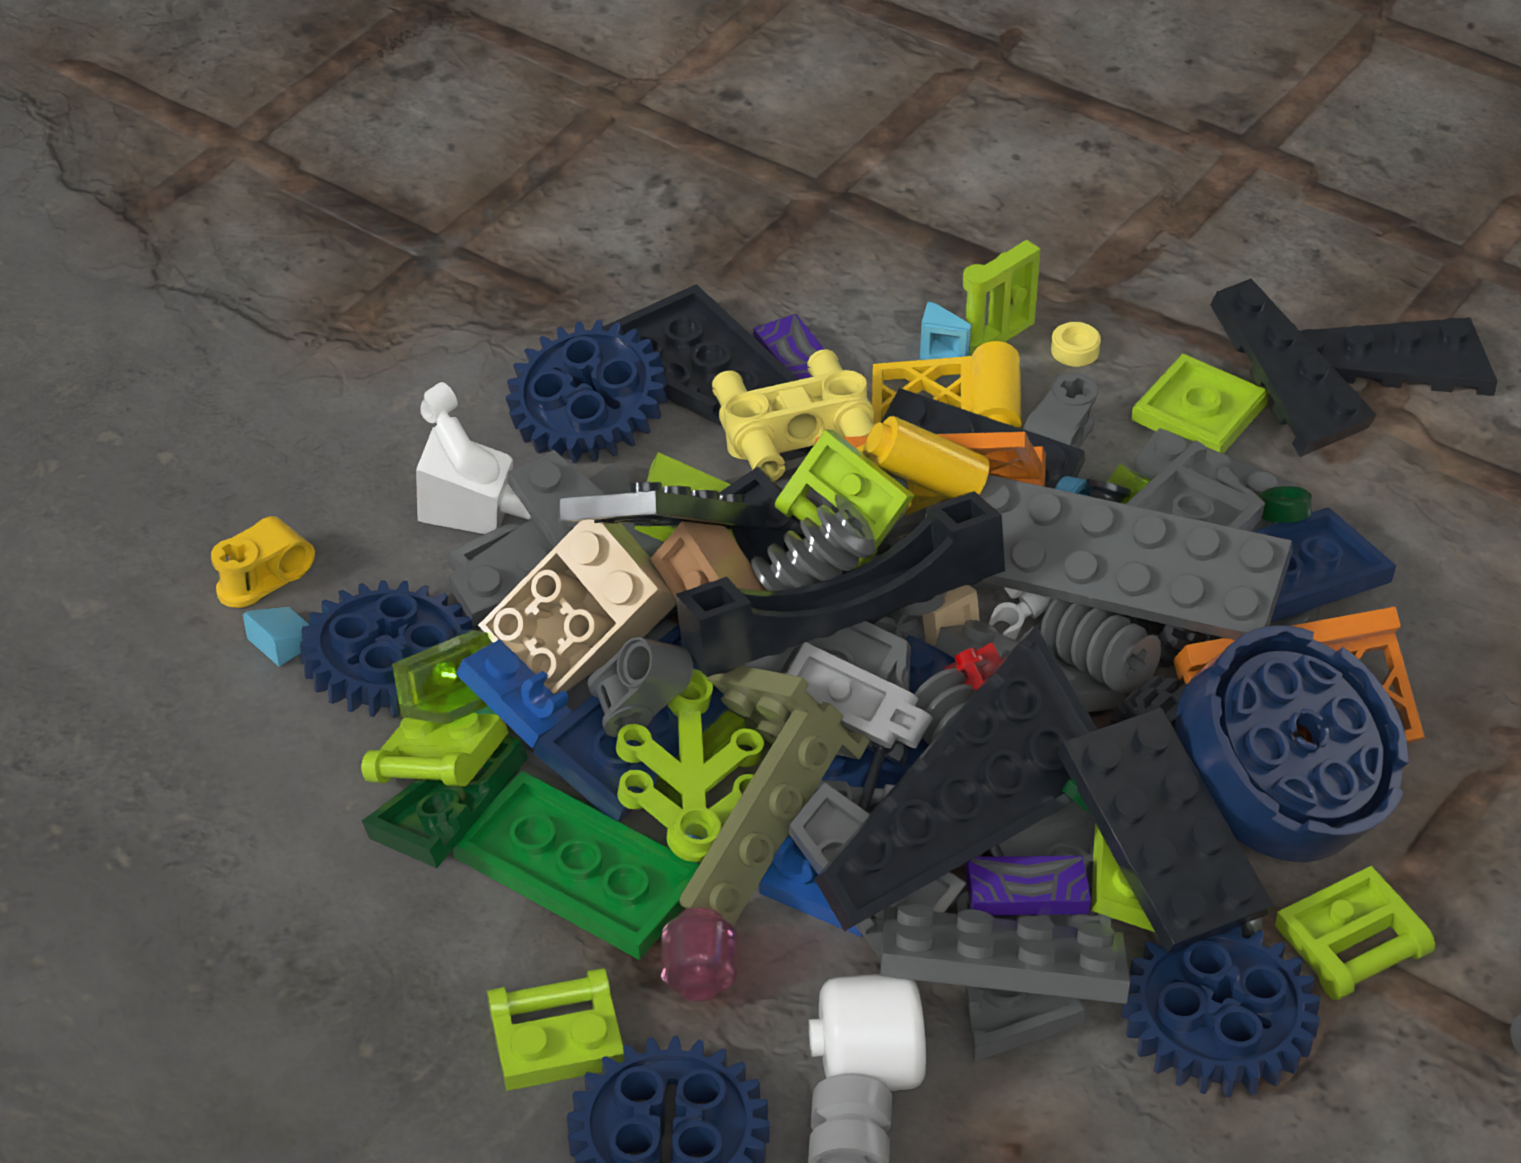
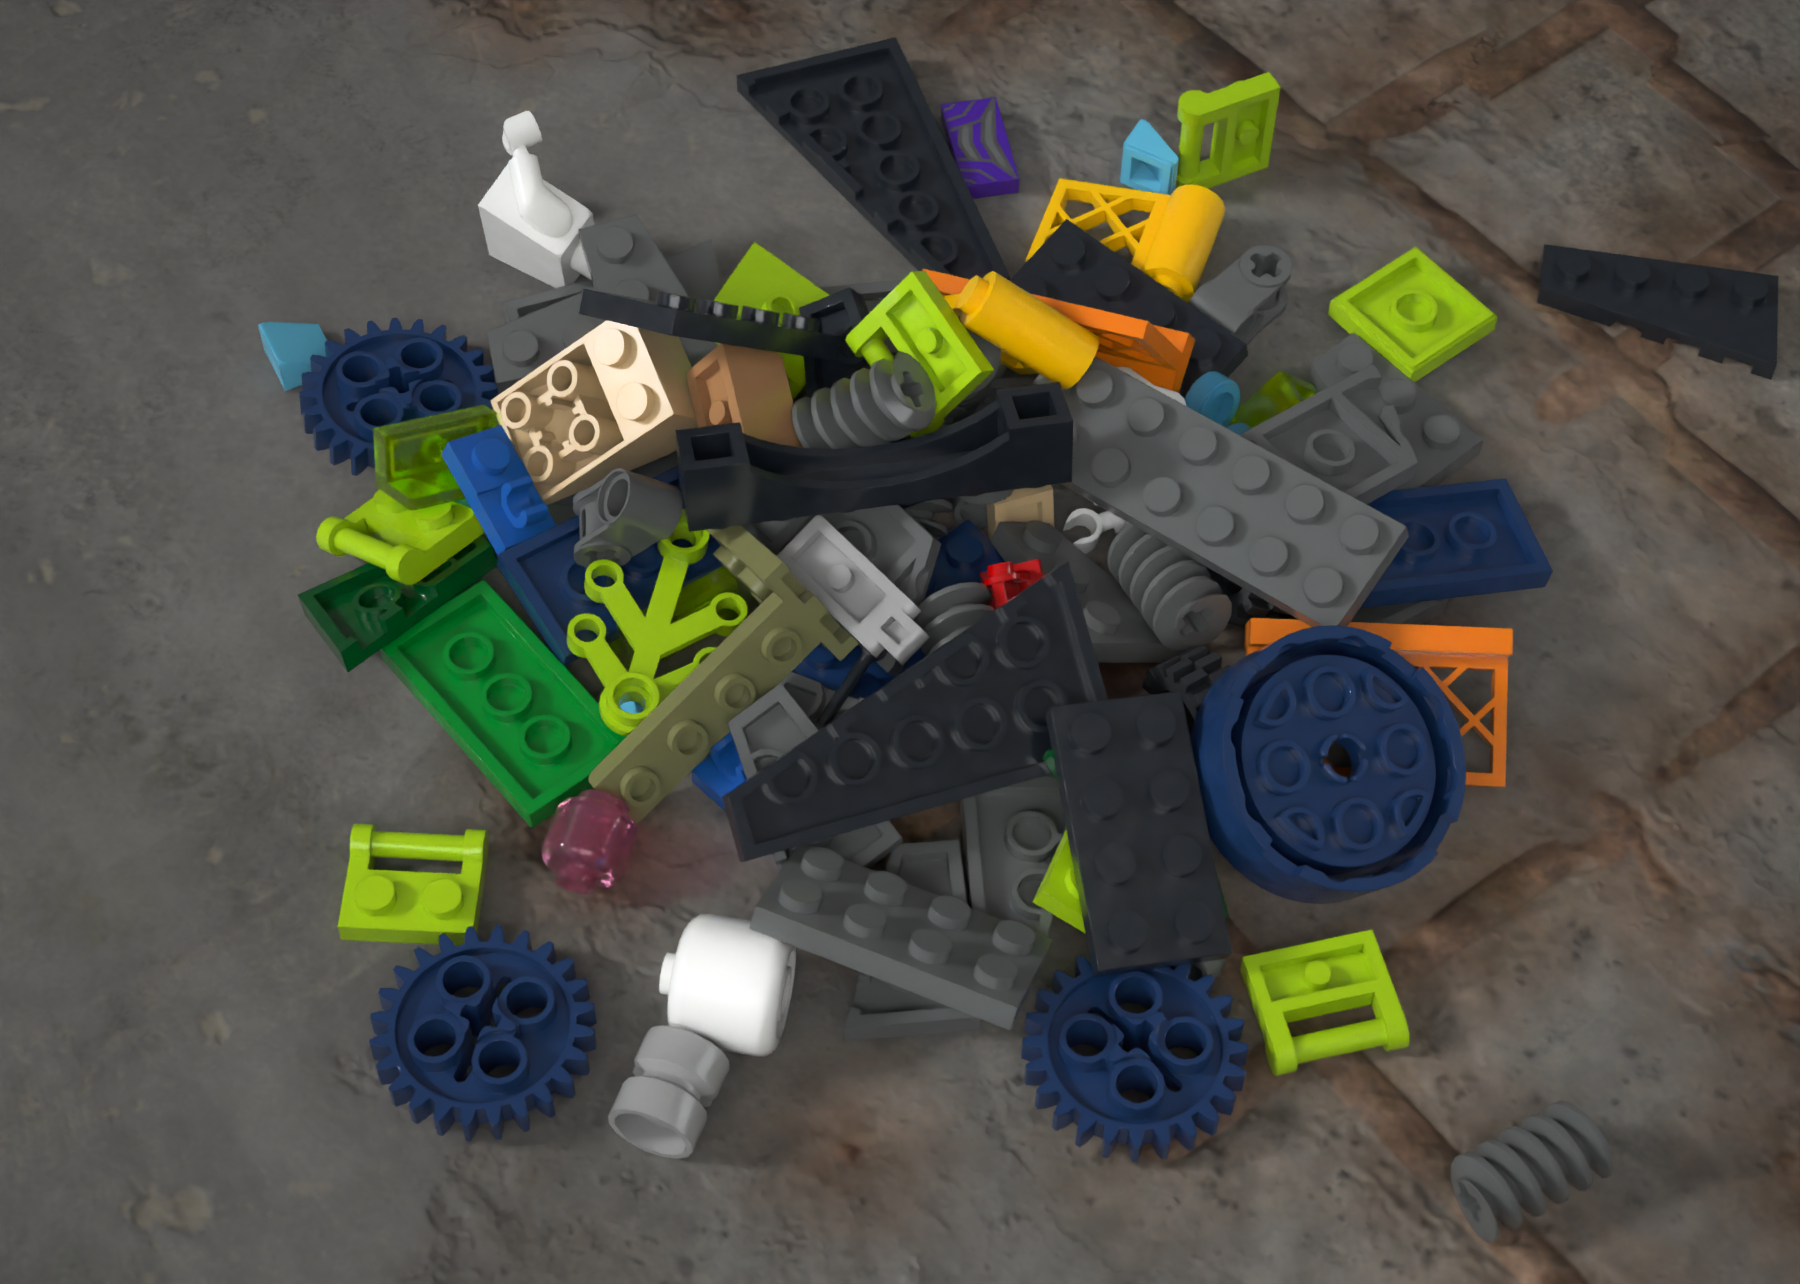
camera: 15 degrees right, 10 degrees up
(263, 558) = (306, 261): yellow piece -> none
(587, 391) = (696, 170): dark blue gear -> none
(792, 413) = (933, 224): light yellow piece -> none
(1028, 885) = (971, 856): dark purple tile -> none
(1075, 344) = (1302, 204): light yellow tile -> none
(1107, 491) = (1247, 406): black bush -> none
(1286, 504) = (1452, 464): dark green tile -> none
(1300, 380) = (1535, 308): black wing -> none

